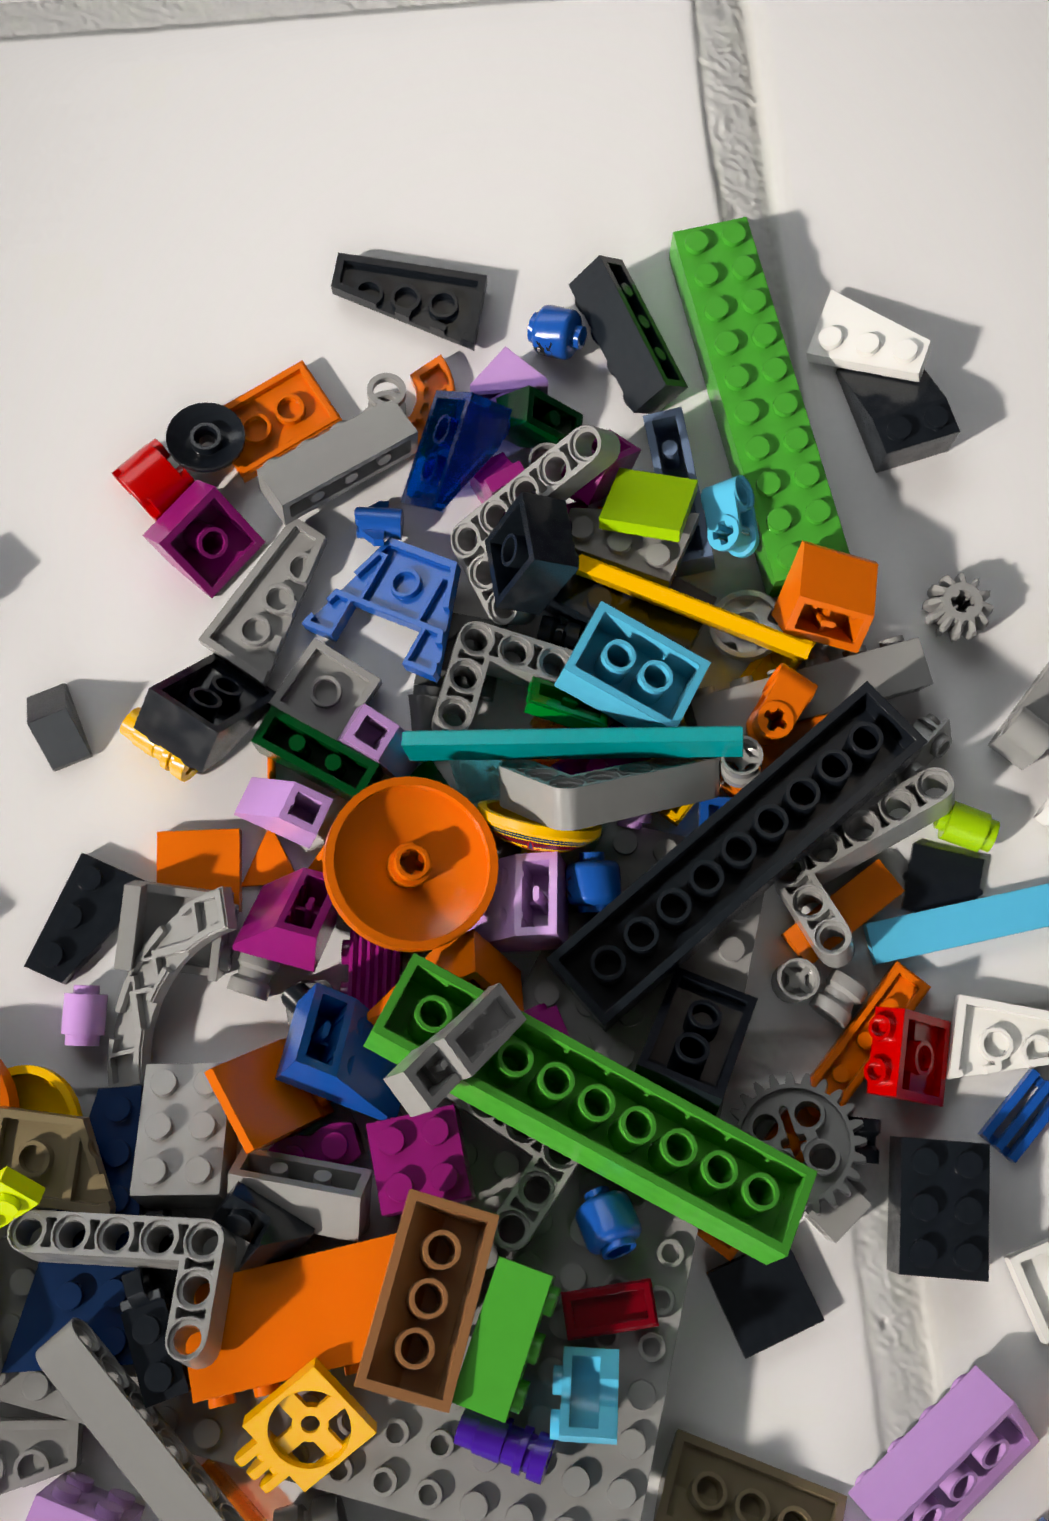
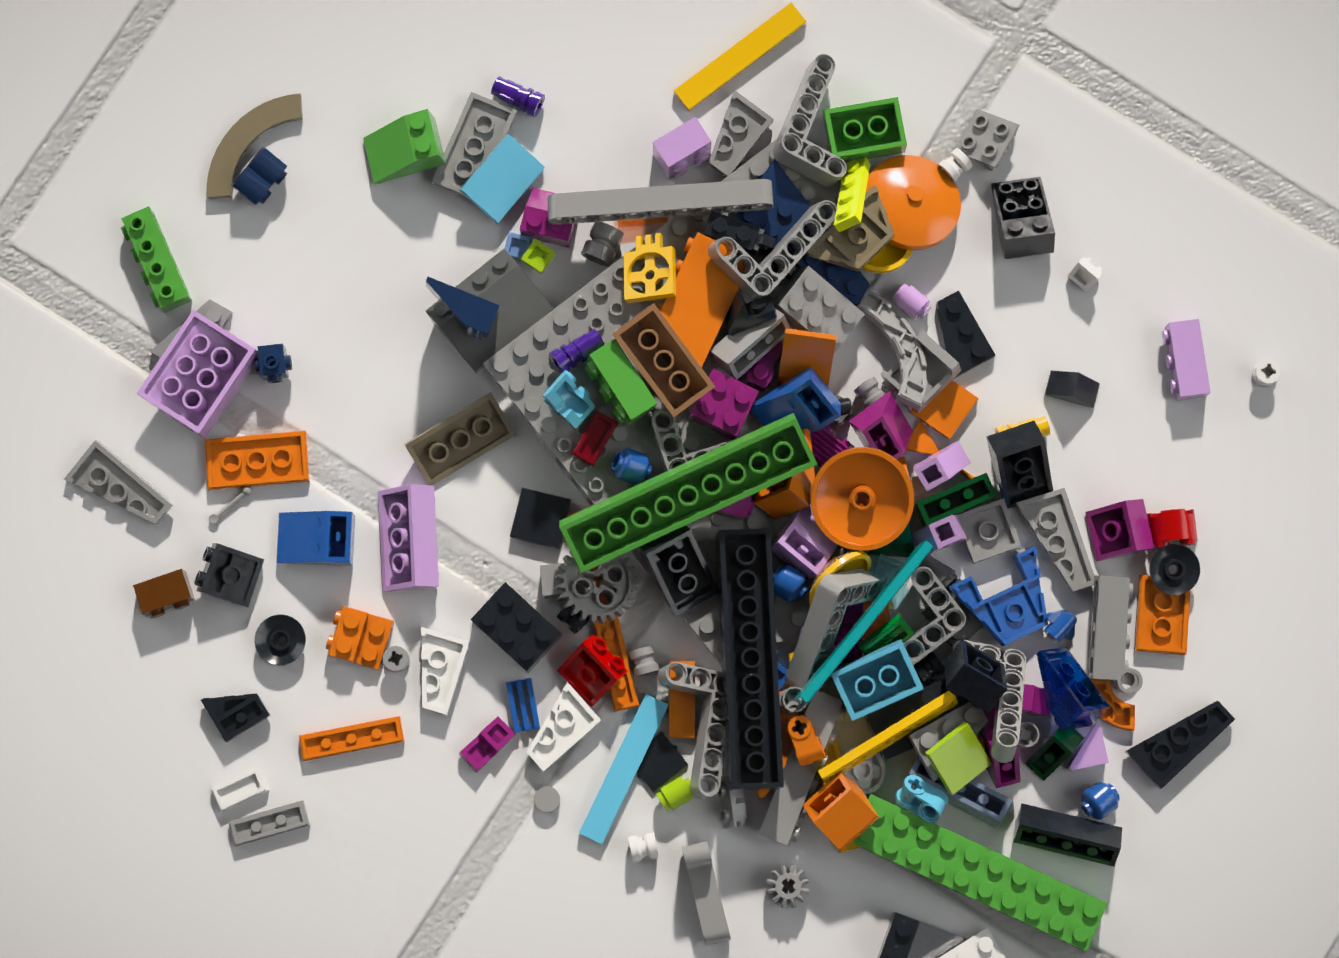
camera: 130 degrees right, 5 degrees up
(455, 1051) = (758, 448): light grey slope -> none
(800, 975) = (671, 645): light grey wheel -> none

